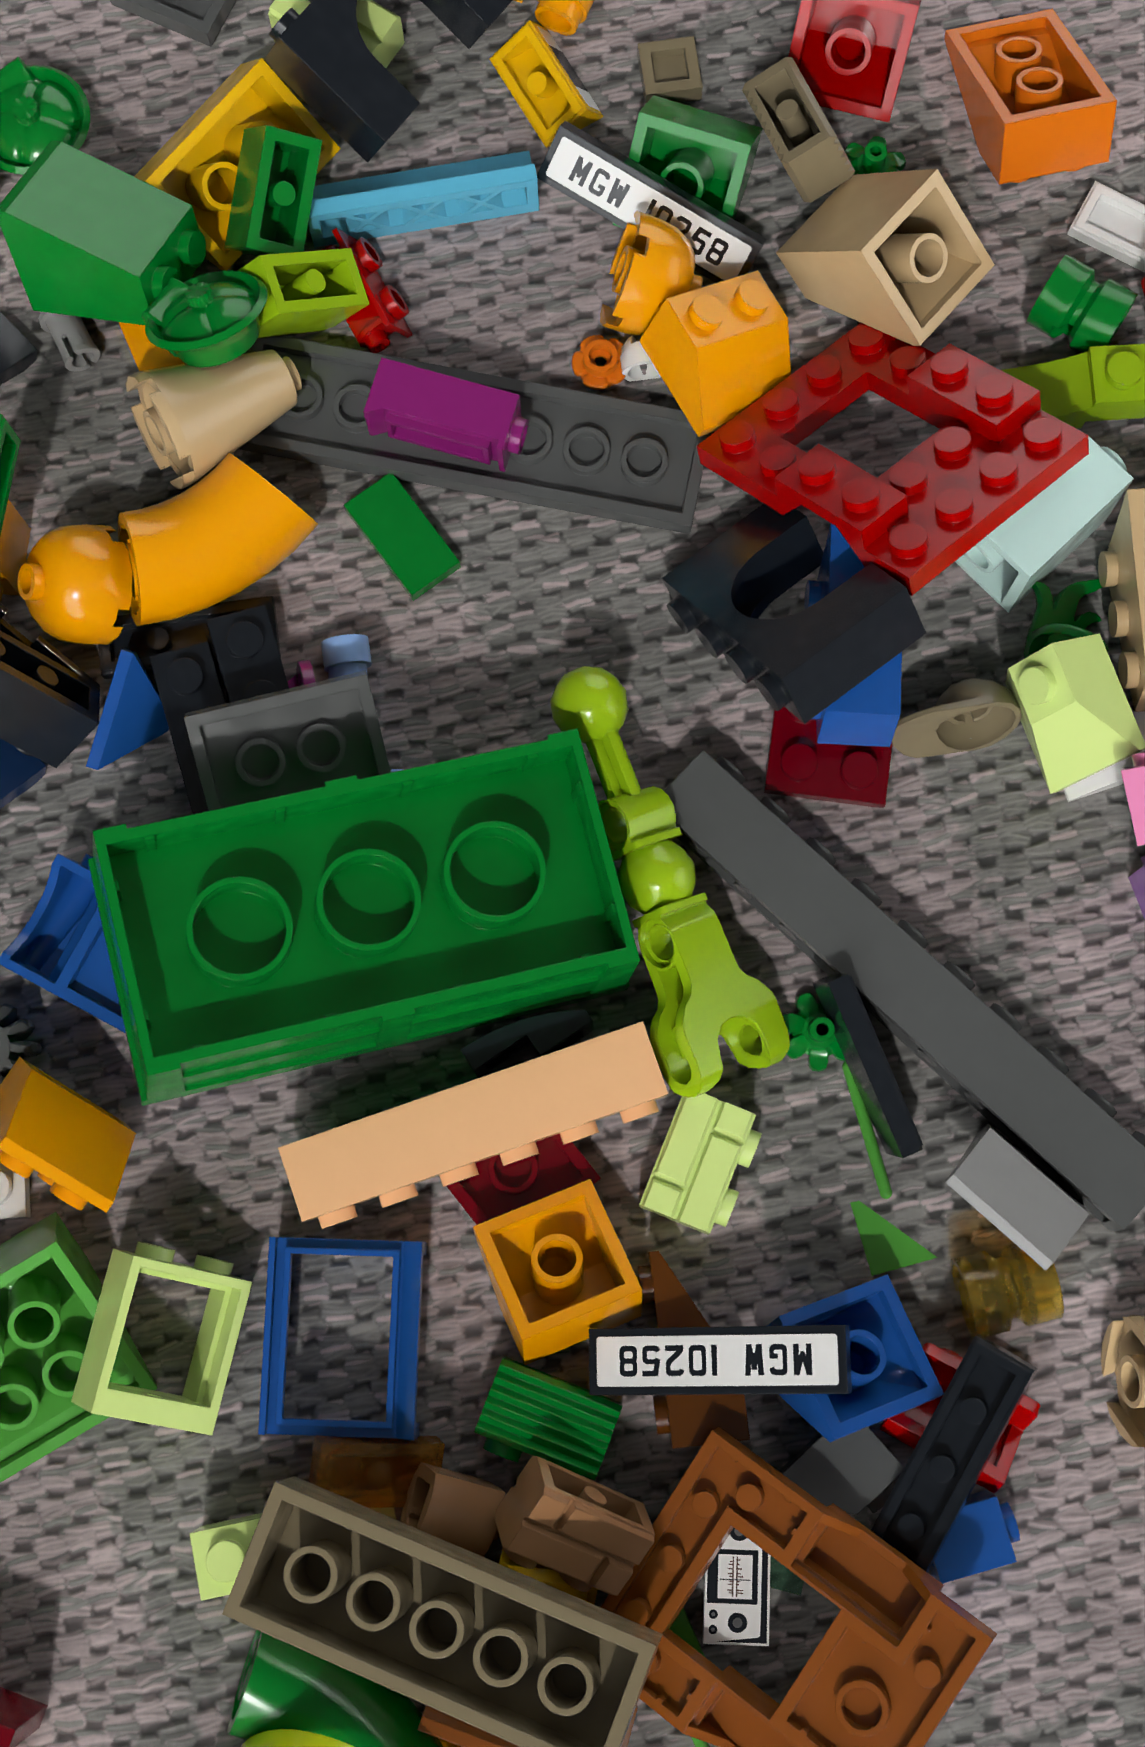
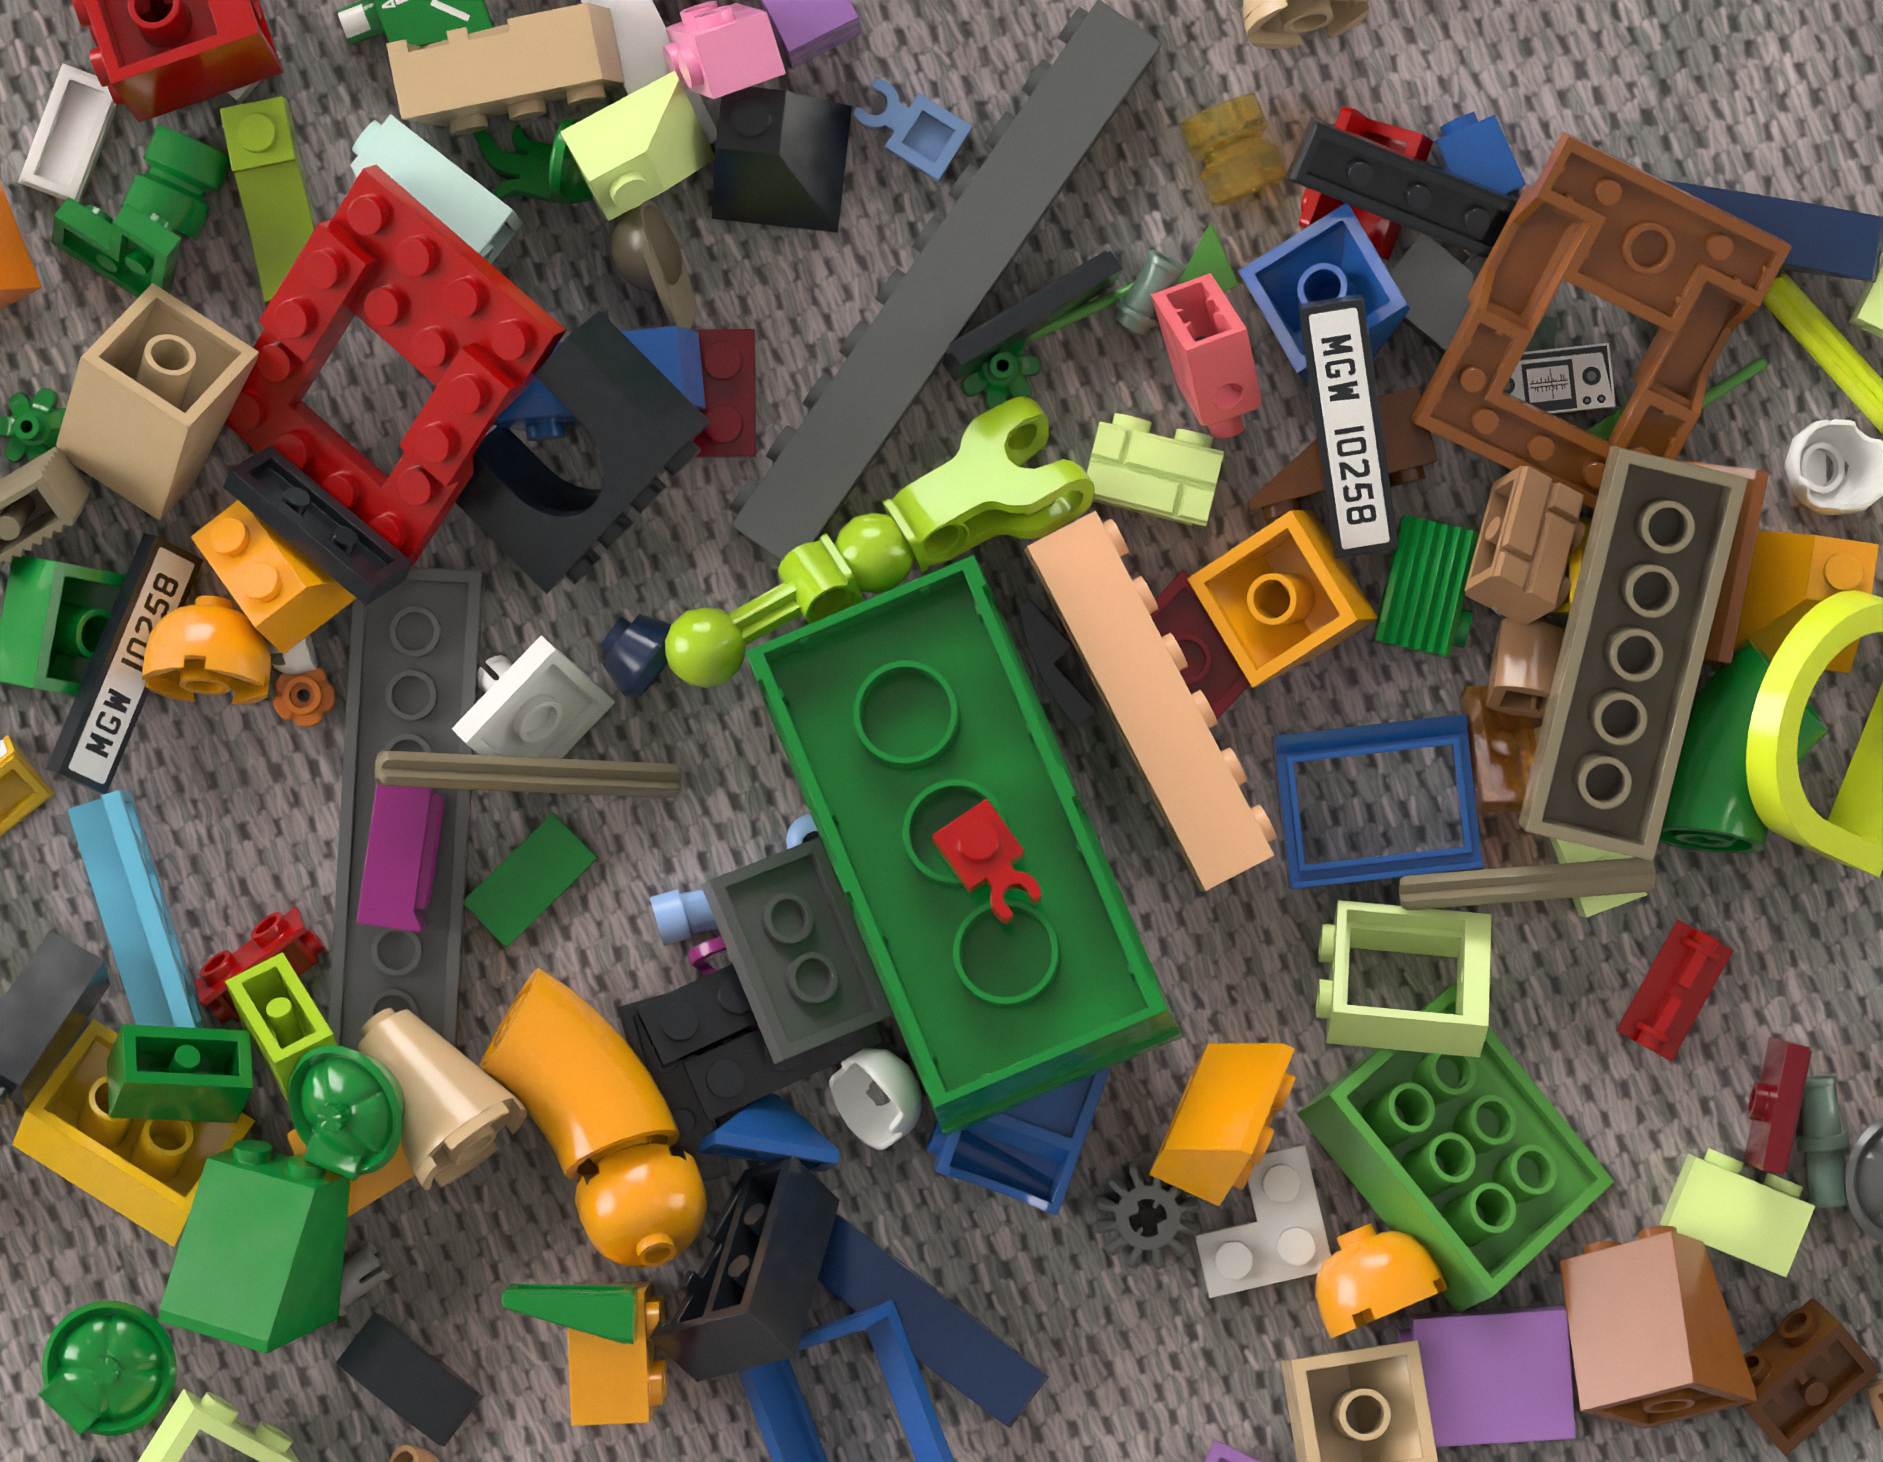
camera: 105 degrees left, 10 degrees up
(109, 1613) = (1674, 990): none -> red hinge
(145, 804) = (871, 1123): none -> white hair
(230, 1477) = (1527, 883): none -> dark tan axle
(339, 918) = (983, 852): none -> red plate
(495, 529) = (527, 774): none -> dark tan axle
(552, 547) = (533, 707): none -> white tile
(594, 647) = (635, 653): none -> dark blue cone
(752, 374) = (318, 525): none -> black plate
(807, 1232) = (1215, 372): none -> coral torso
(874, 1184) = (1137, 308): none -> sand green pin
(1017, 1196) = (1142, 151): light grey slope -> none
(1030, 251) = (126, 250): none -> green plate
(1046, 849) = (780, 159): none -> black slope
(1054, 986) = (922, 134): none -> medium blue plate

